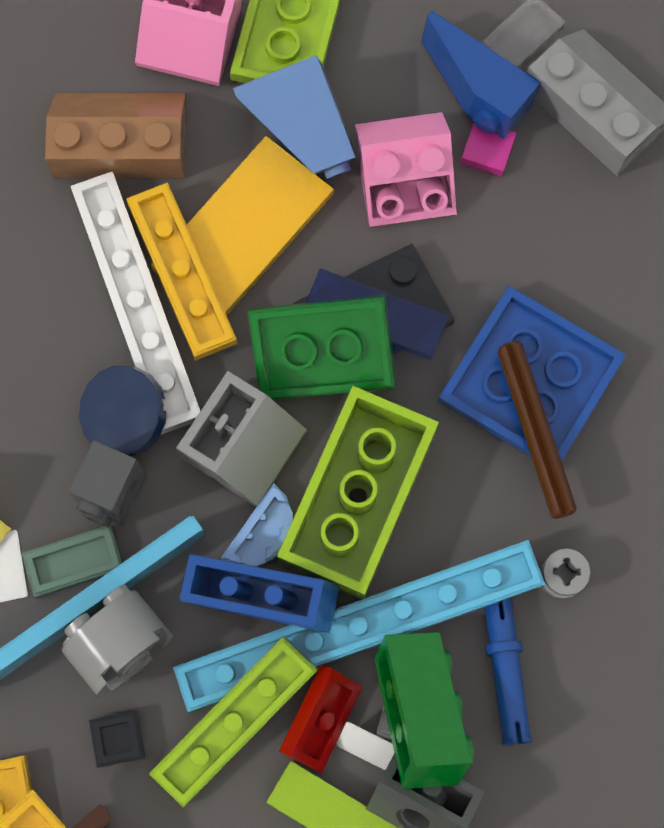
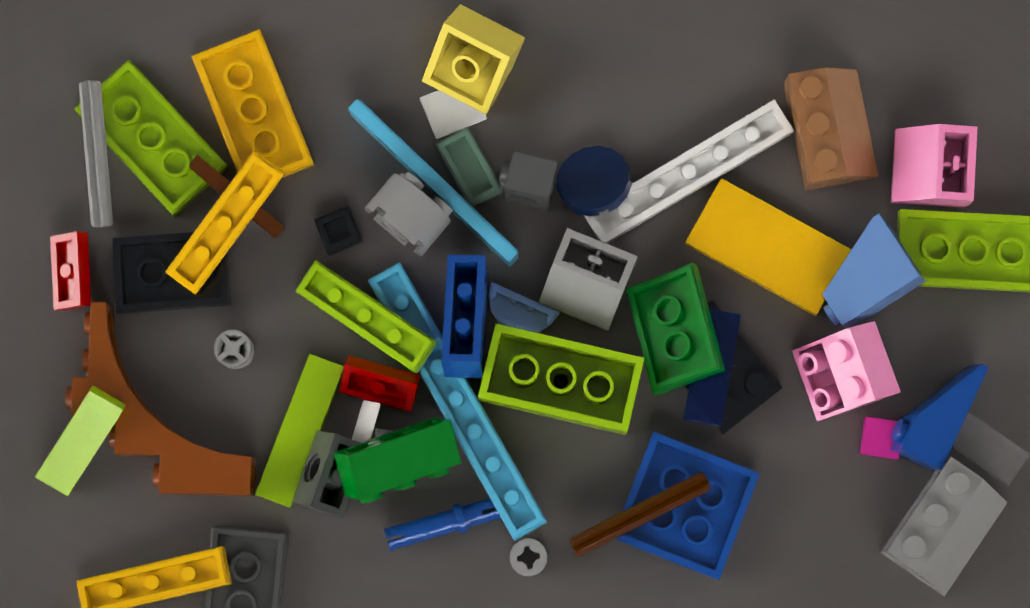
camera: 85 degrees right, 5 degrees up
(181, 271) = (720, 203): yellow tile -> none

